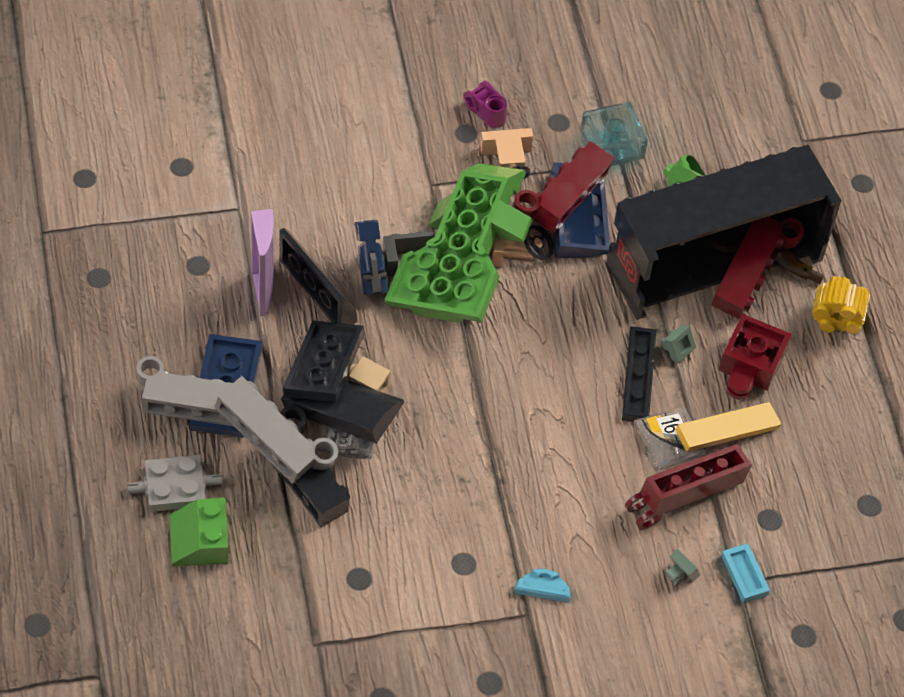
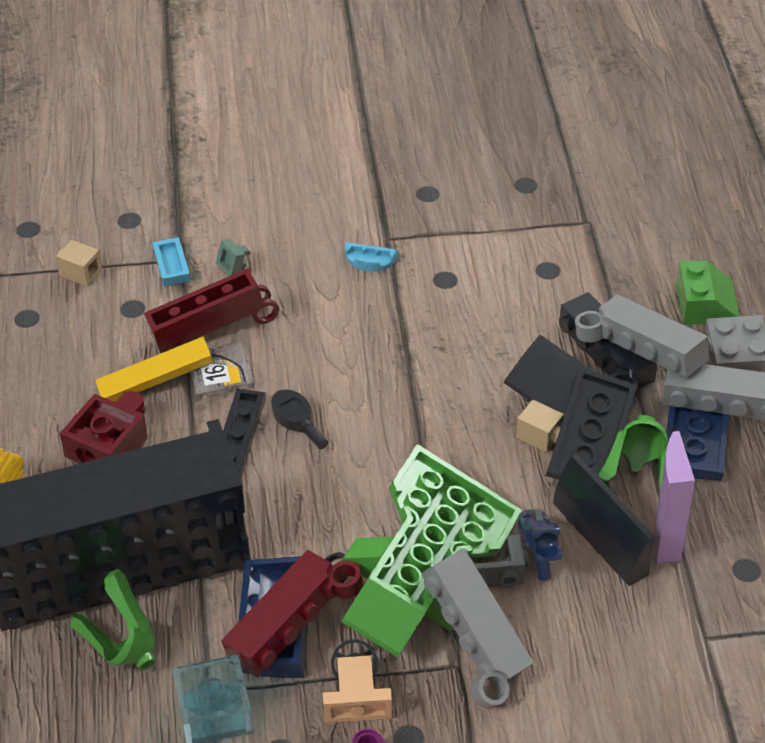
camera: 170 degrees left, 10 degrees down
(281, 346) = (640, 443): none -> bright green piece
(420, 177) = (479, 624): none -> light grey hinge
(591, 392) = (294, 413): none -> black piece
(837, 558) = (79, 262): none -> tan brick

